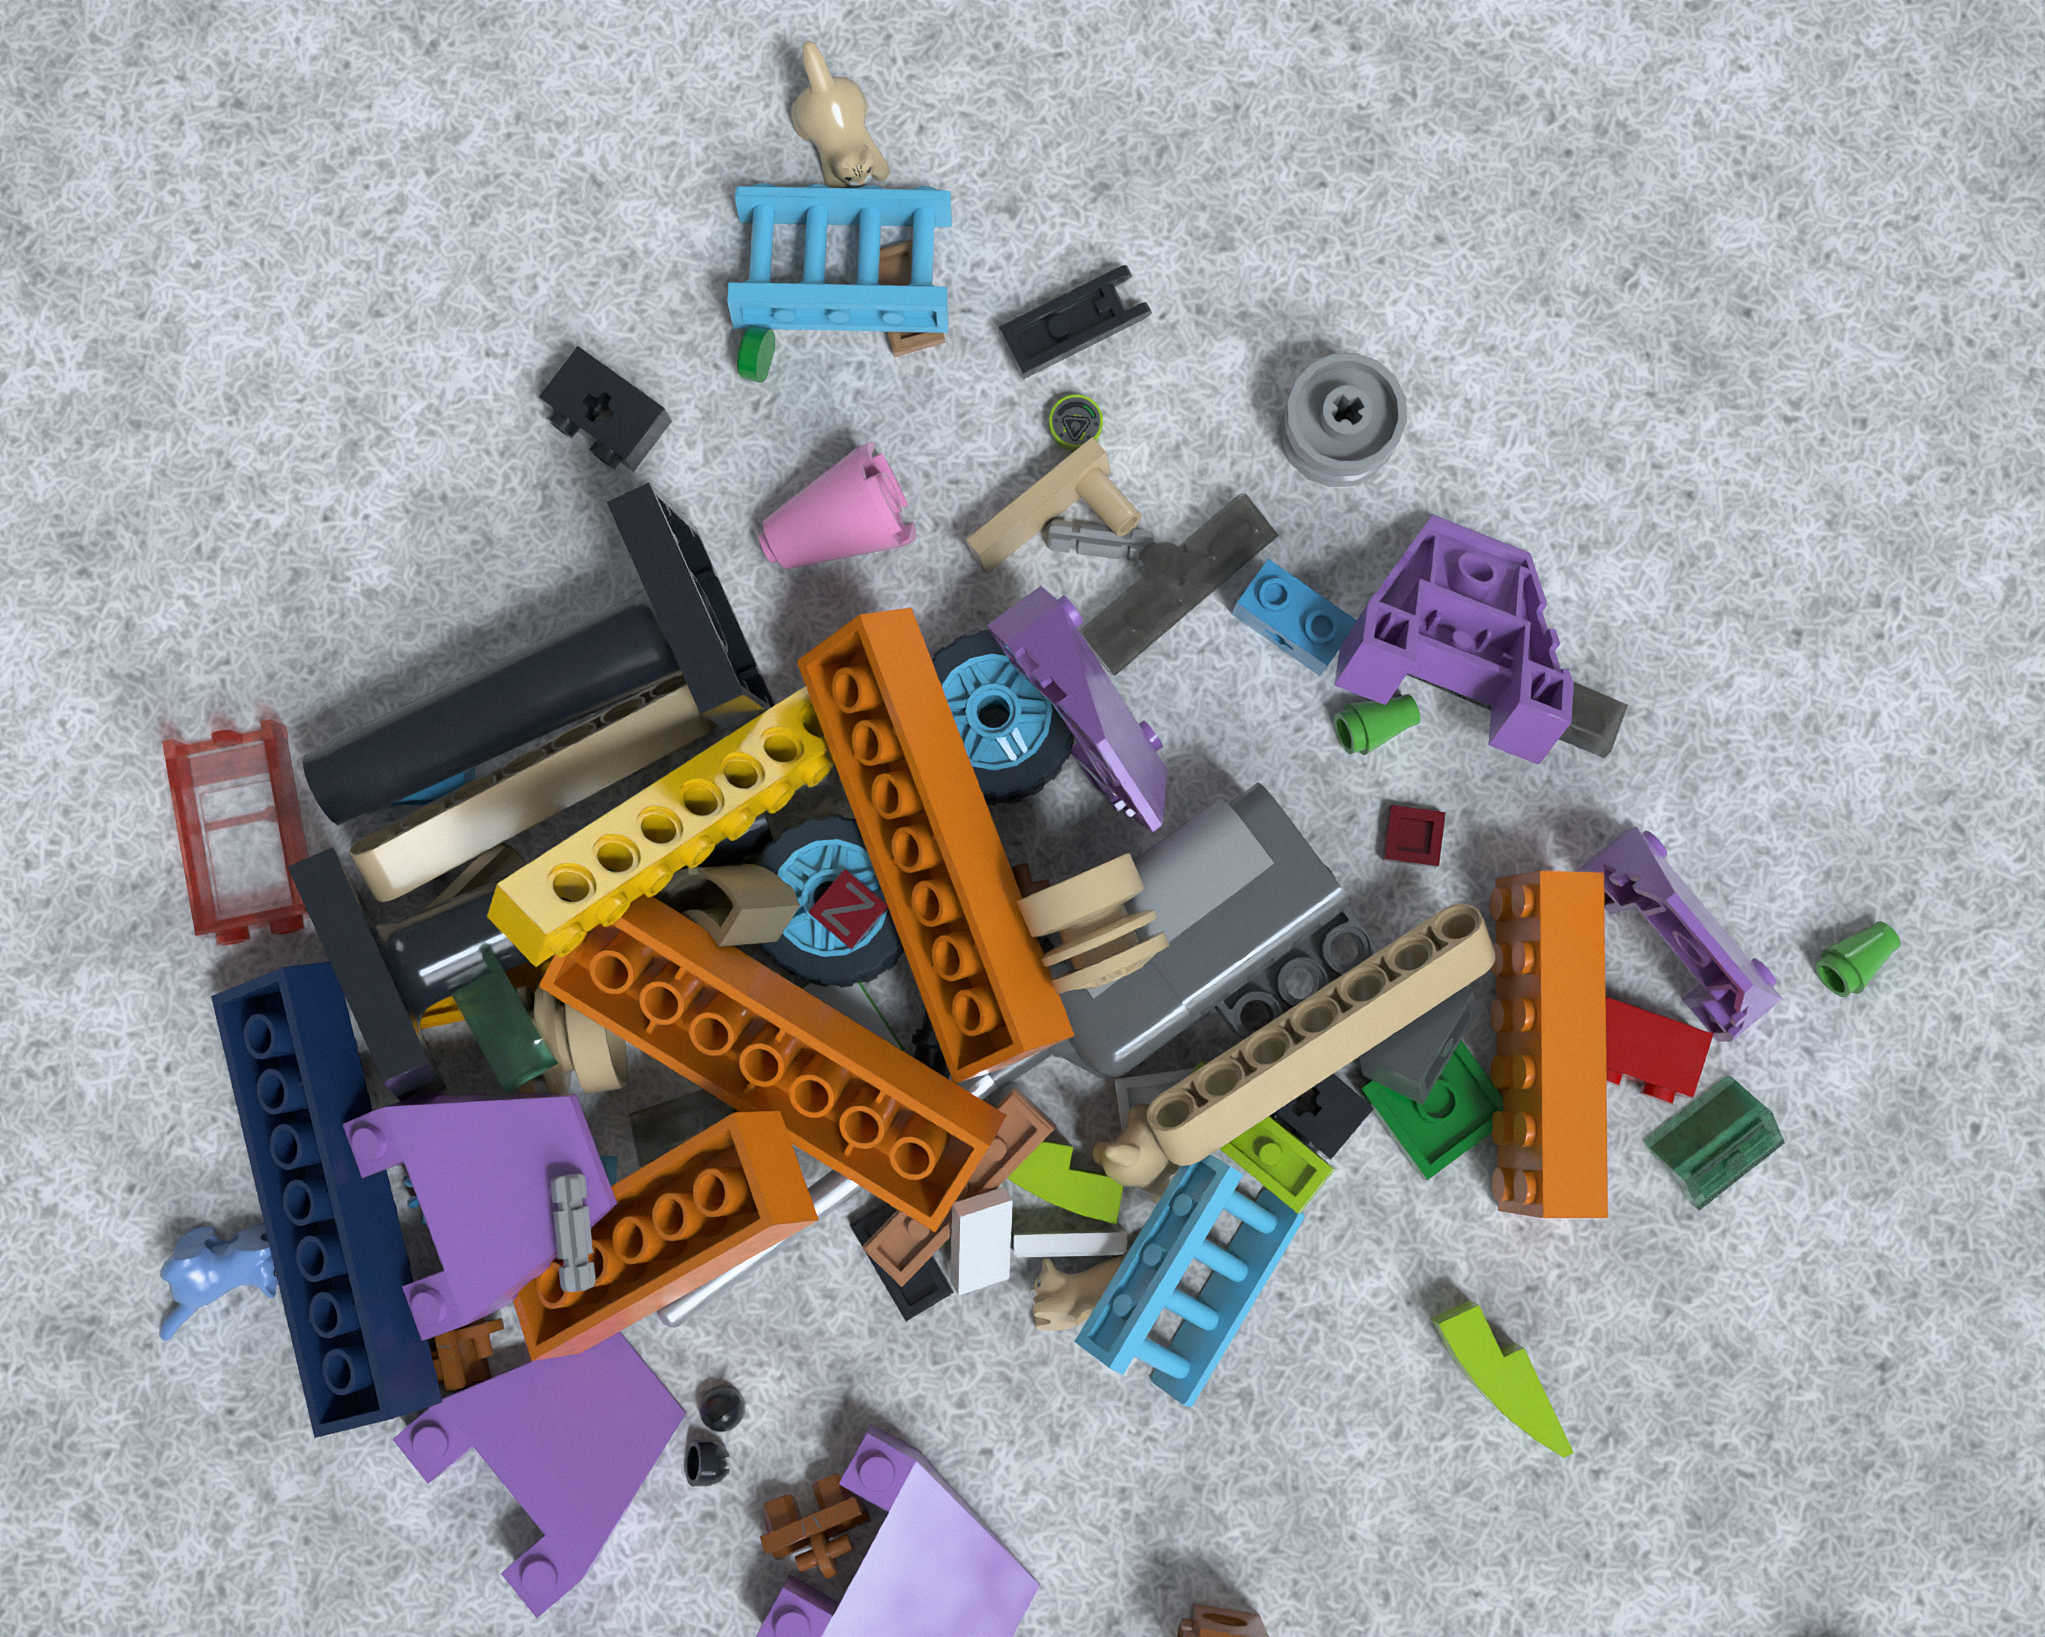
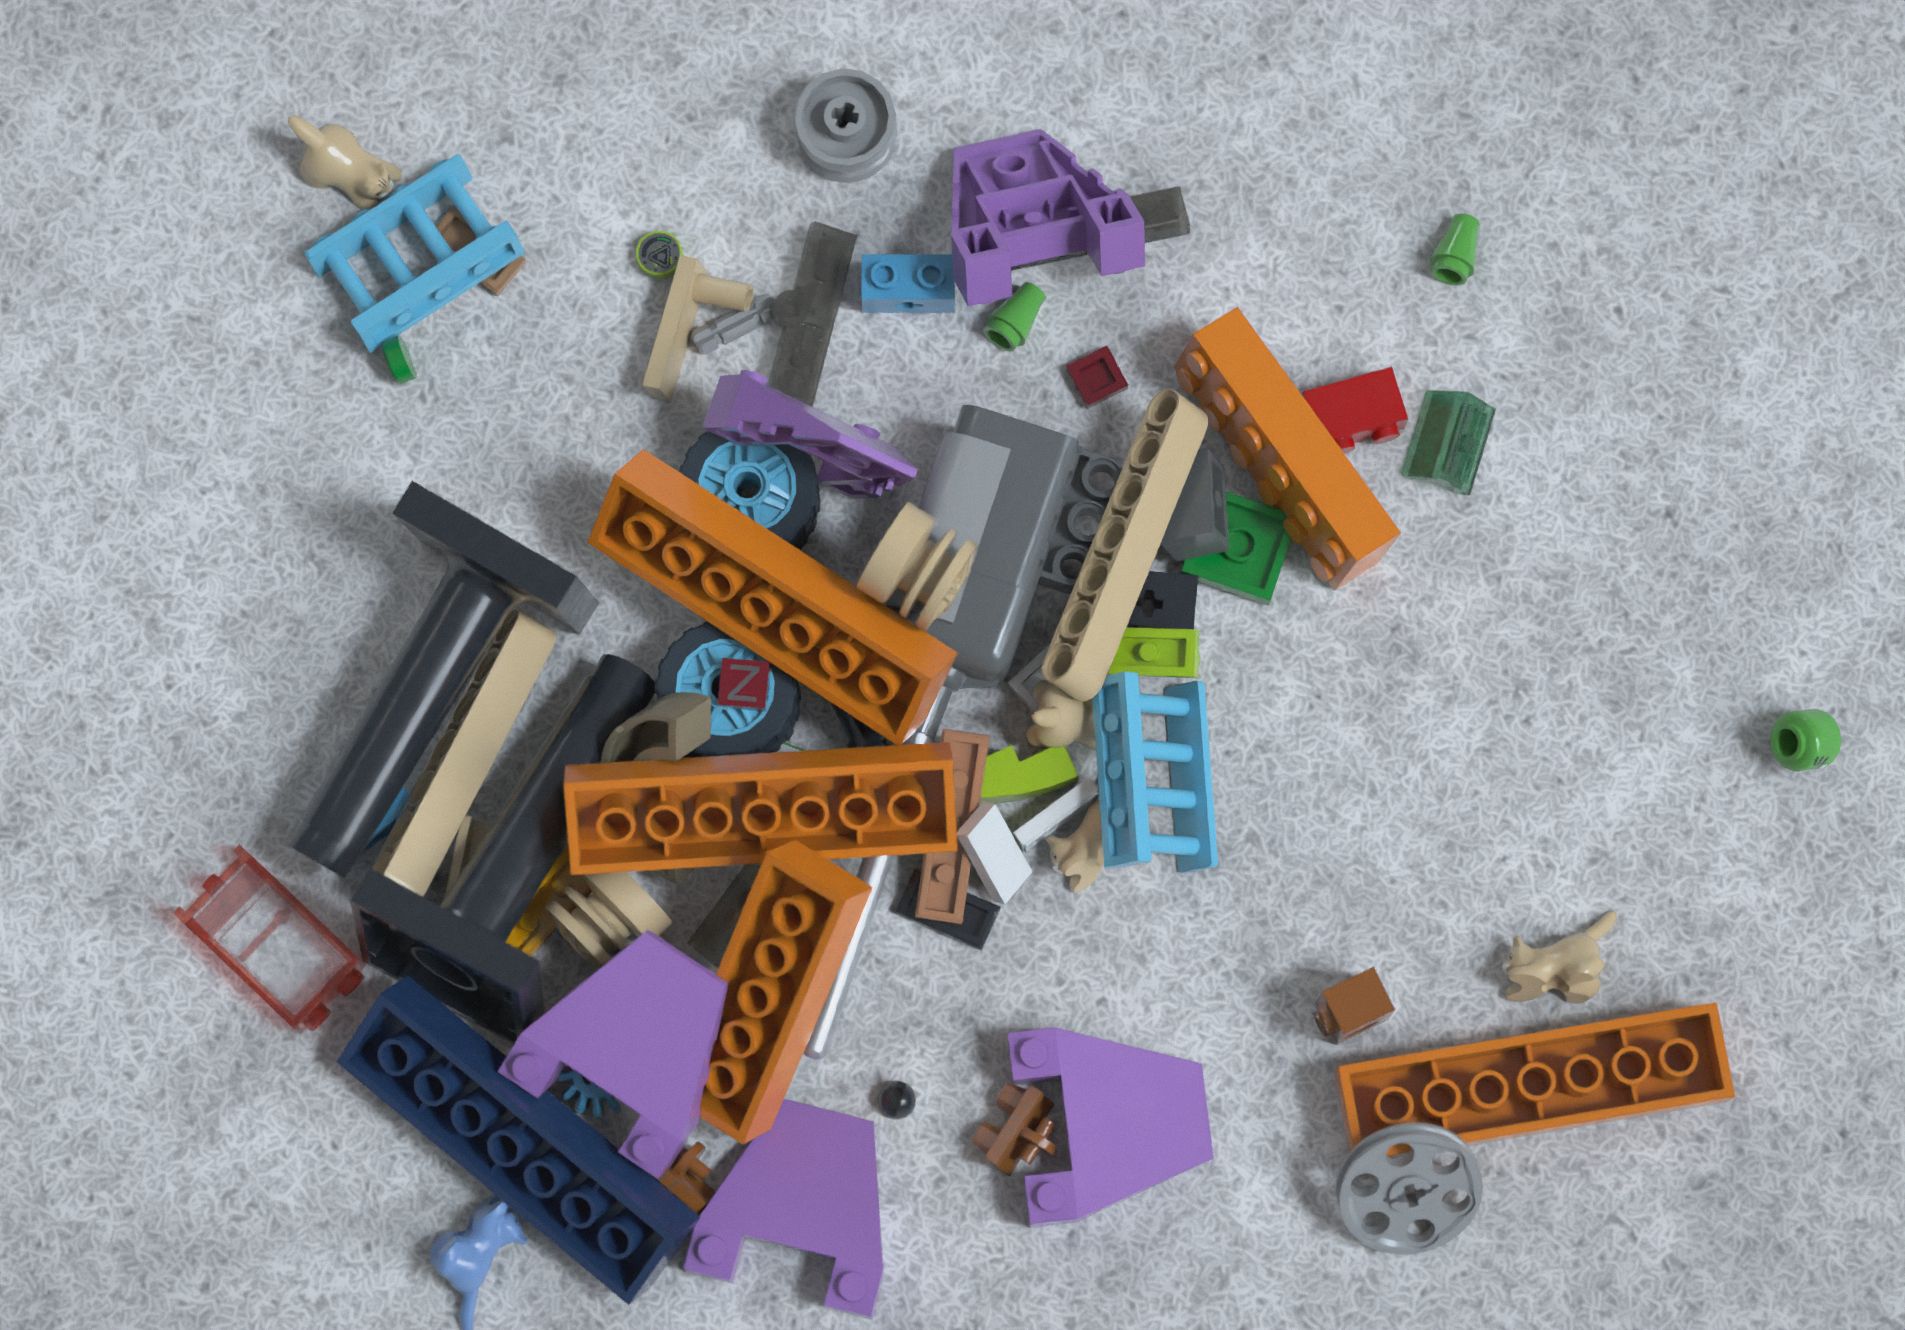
camera: 35 degrees left, 5 degrees down
(504, 1026) = (564, 919): clear green panel -> none
(573, 1232) = (712, 1018): light grey axle -> none
(588, 384) = (299, 459): black brick -> none
(682, 815) = (584, 704): yellow brick -> none
(704, 1463) = (915, 1138): black hinge -> none
(840, 514) = (540, 430): bright pink cone -> none
(1070, 323) = (606, 188): black hinge -> none
(1501, 1374) = (1415, 699): lime slope -> none
(1731, 986) = (1385, 325): medium lavender wedge -> none

